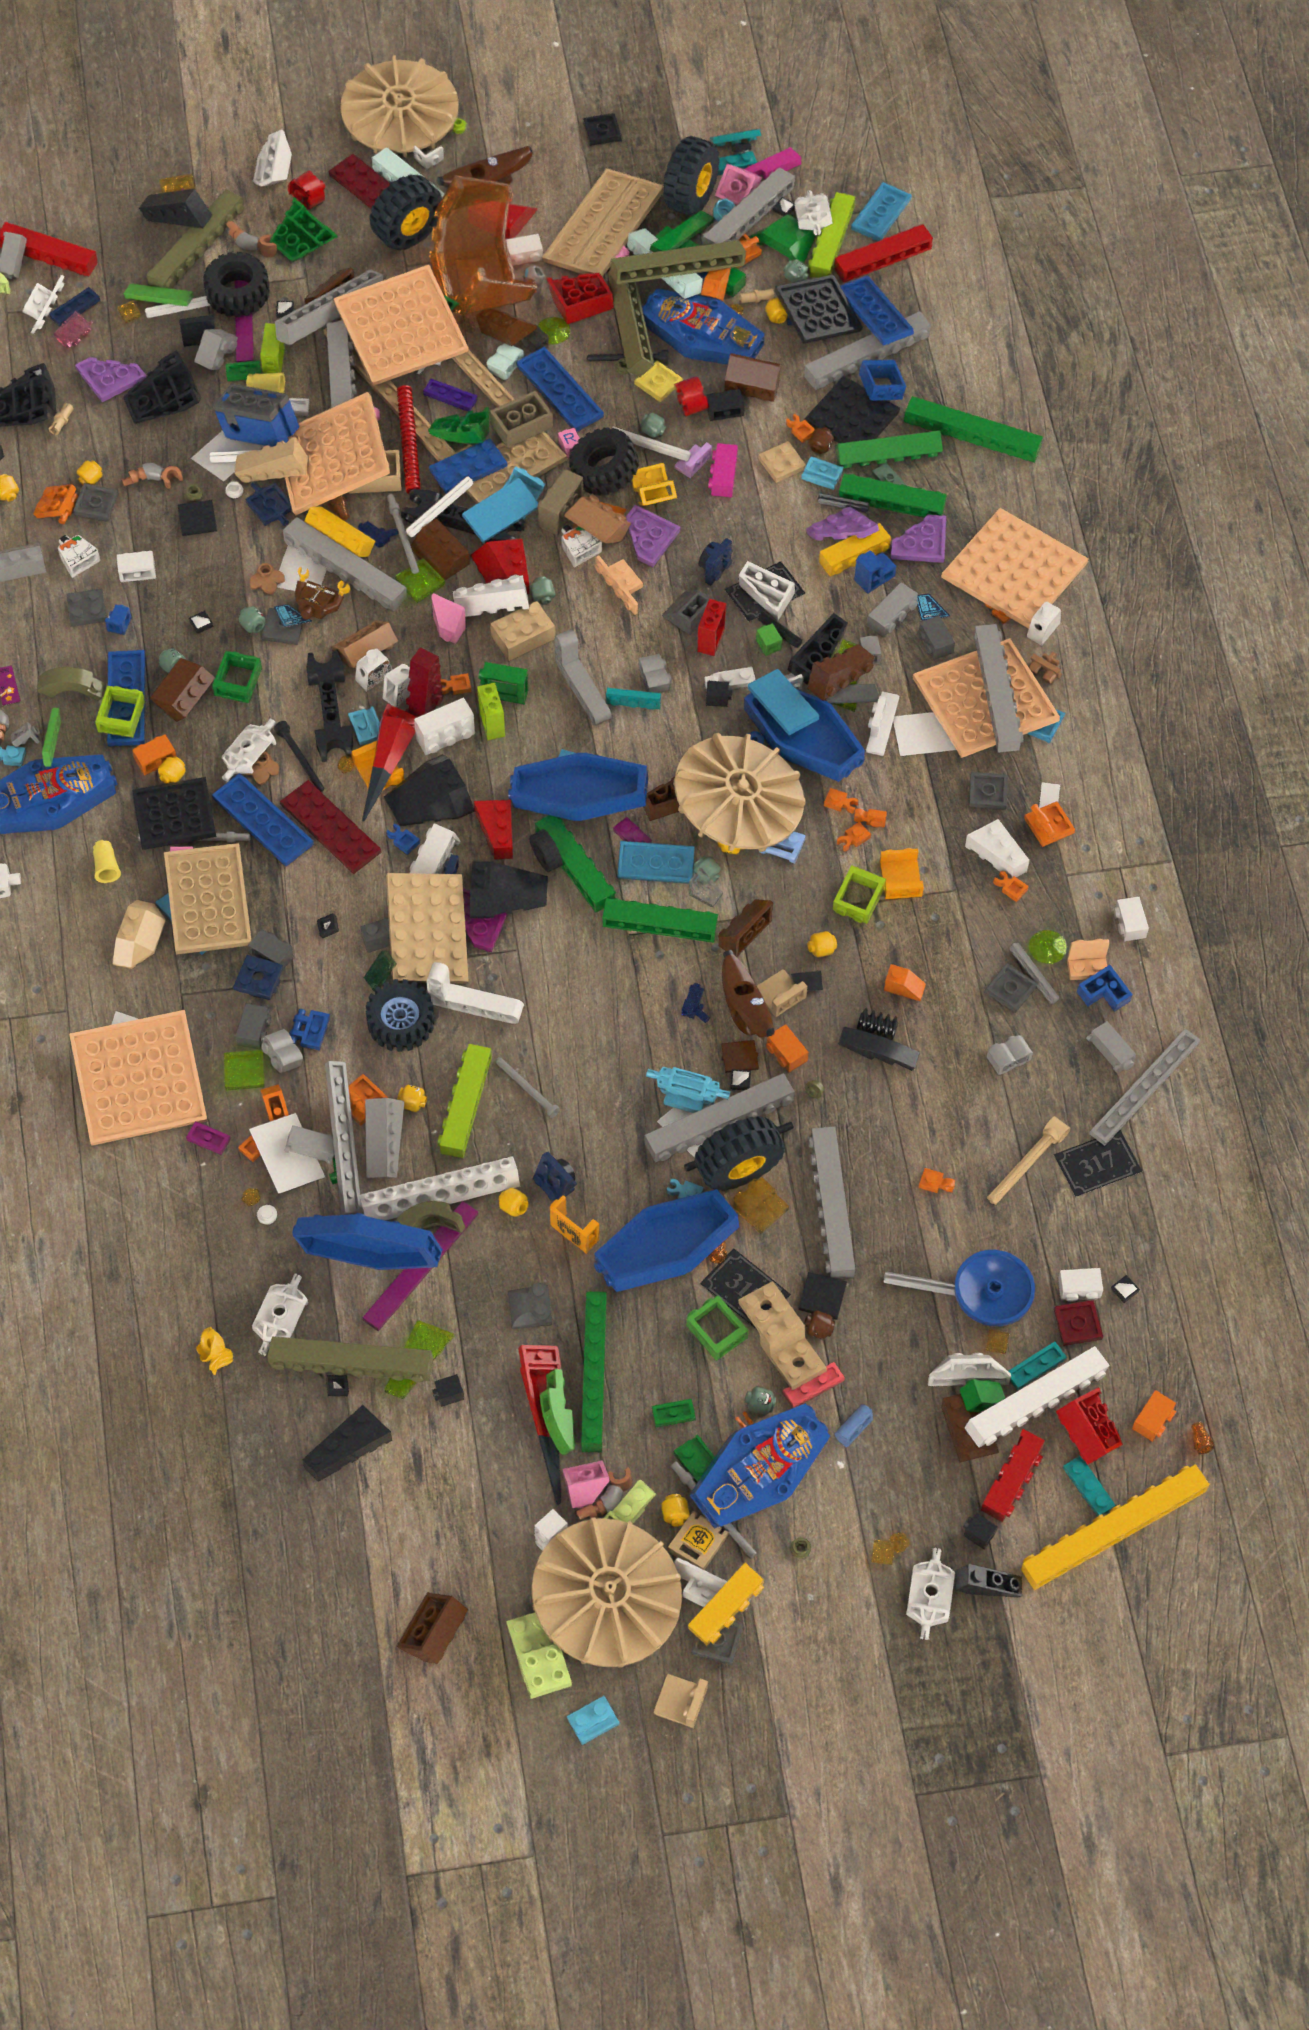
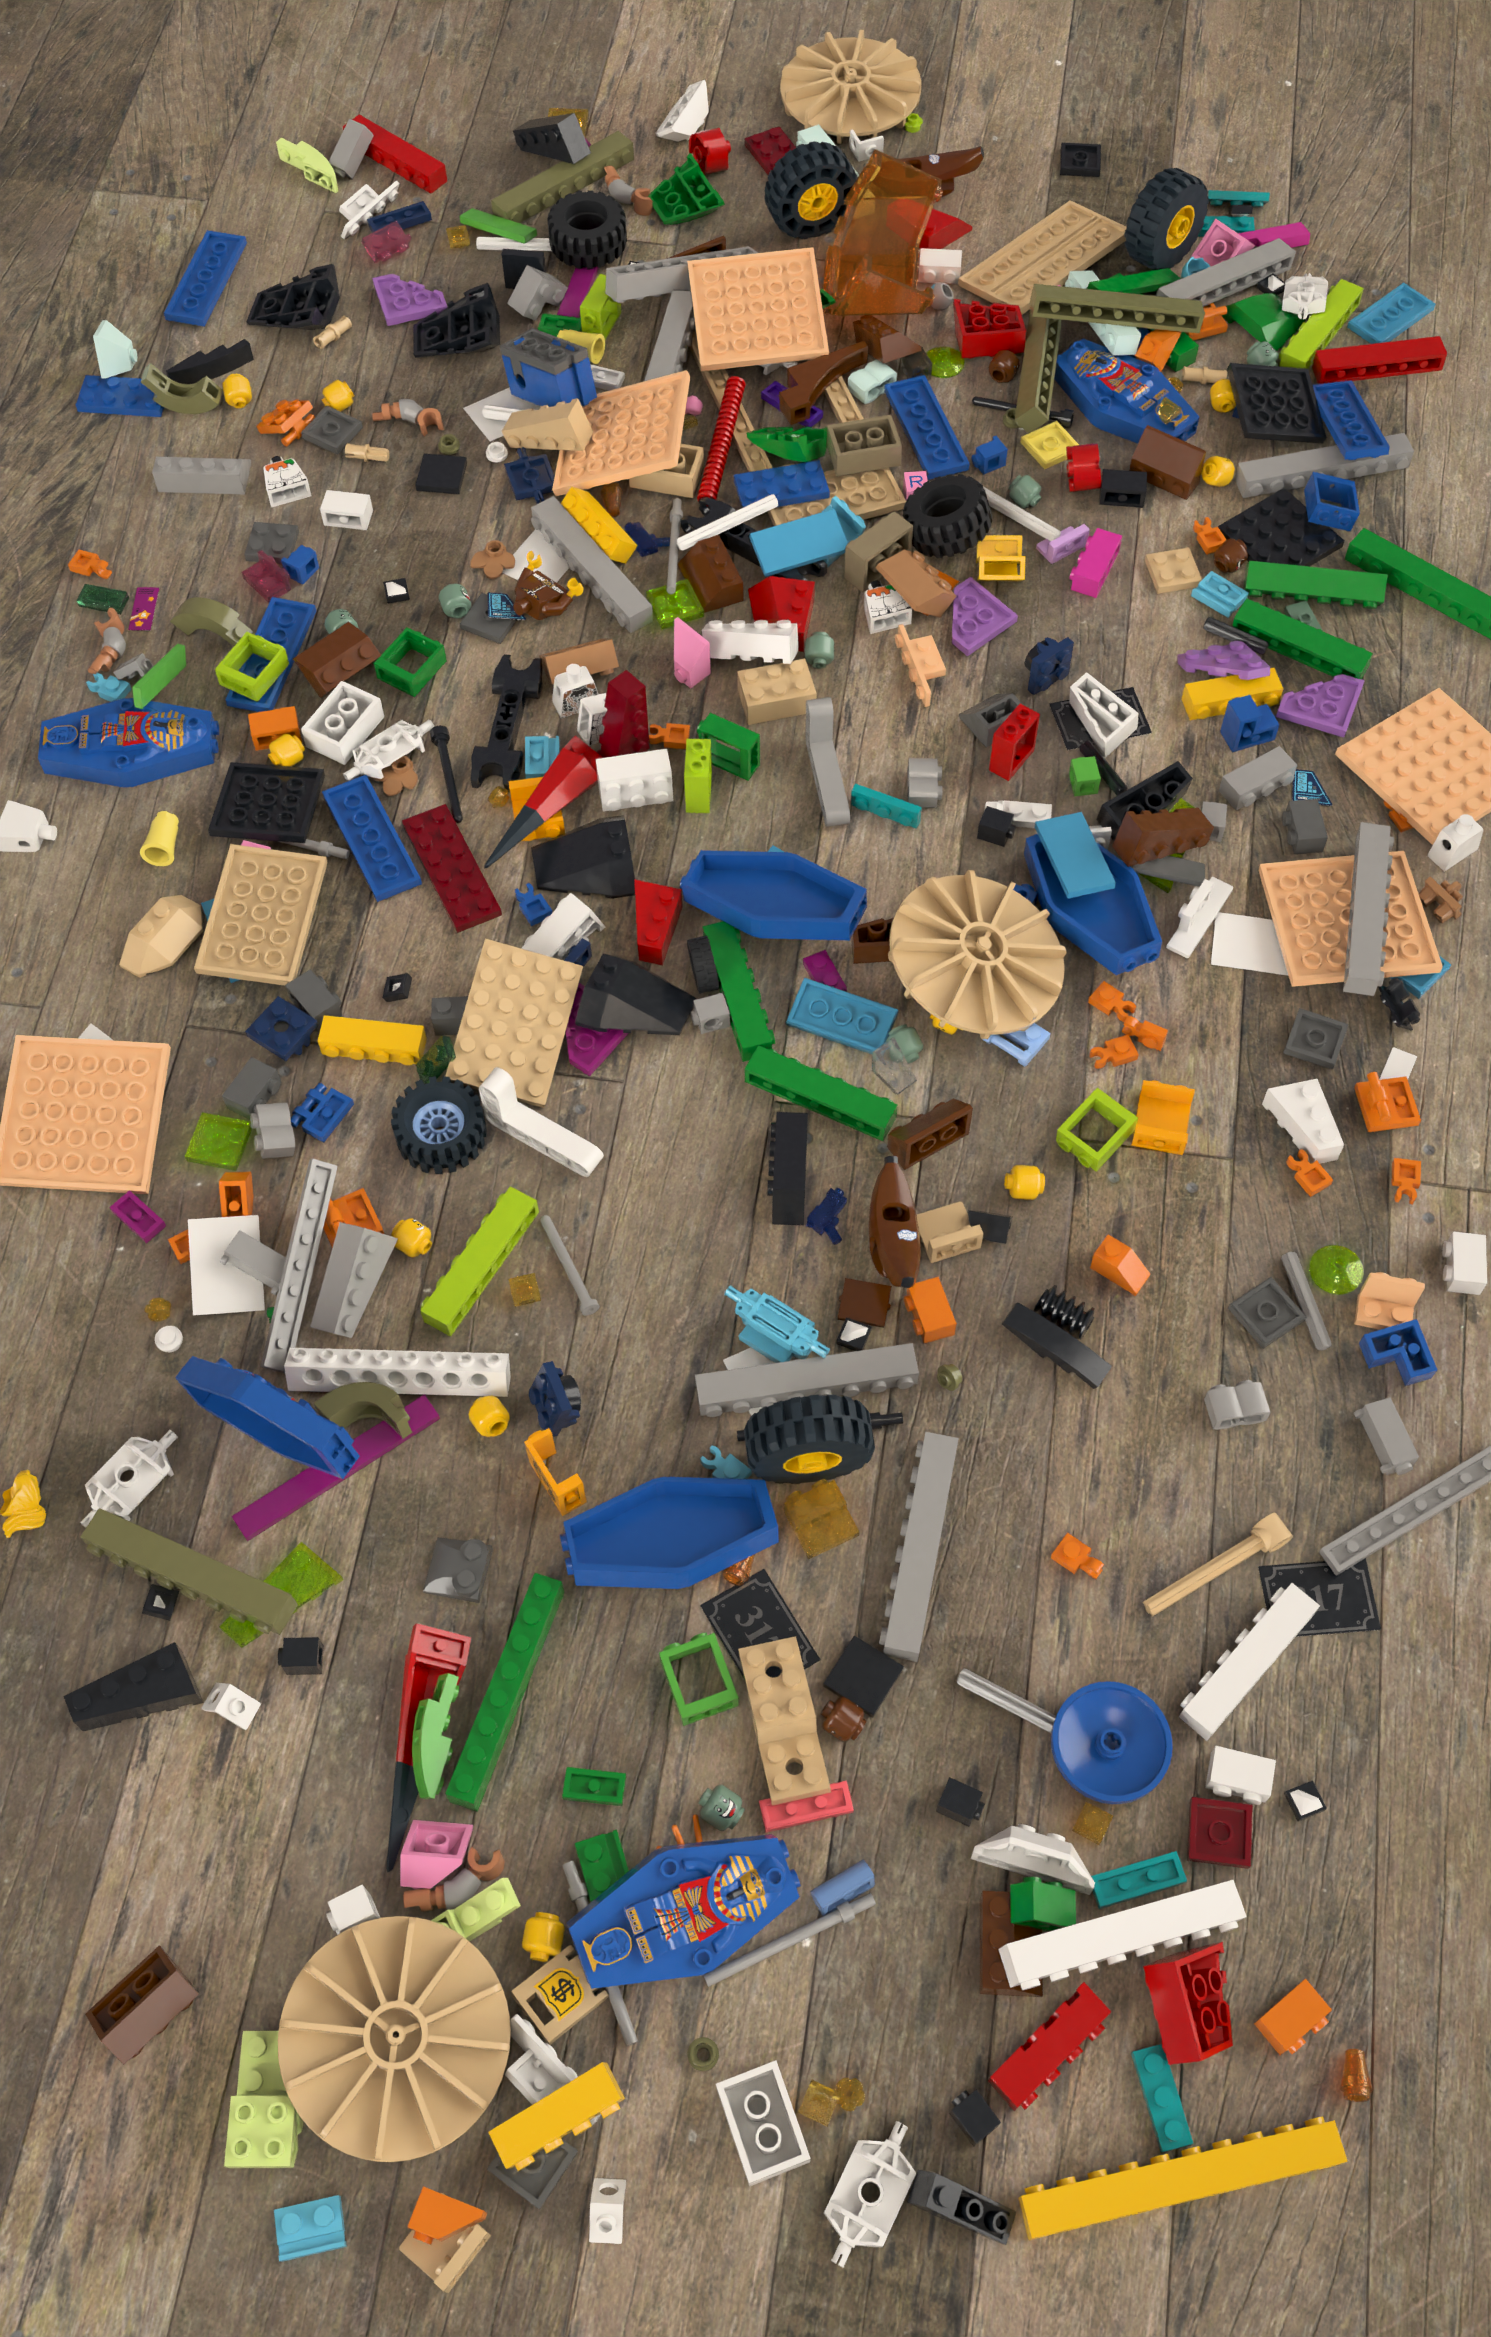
camera: 20 degrees right, 0 degrees up
(96, 636) = (267, 577): none -> clear pink bracket
(130, 515) = (366, 452): none -> tan axle
(206, 737) = (342, 722): none -> white brick
(326, 968) = (372, 1040): none -> yellow brick
(413, 1433) = (232, 1704): none -> white bracket
(459, 372) = (812, 377): none -> reddish brown arch
(504, 1112) = (524, 1289): none -> clear yellow plate
(562, 884) = (710, 1013): none -> light grey brick
(602, 324) = (1003, 366): none -> reddish brown head
(617, 402) = (990, 456): none -> blue brick
(657, 978) = (788, 1168): none -> black wedge
(676, 1683) = (442, 2216): none -> orange slope
(774, 1653) = (607, 2212): none -> white bracket
(791, 374) = (1218, 471): none -> yellow head
(852, 1572) = (763, 2123): none -> white brick
(859, 1440) = (844, 1913): none -> light grey bar
(911, 1352) = (960, 1802): none -> black brick
(1043, 756) = (1393, 997): none -> black hinge
(1065, 1214) = (1248, 1661): none -> white brick
(1077, 871) = (1407, 1176): none -> orange plate

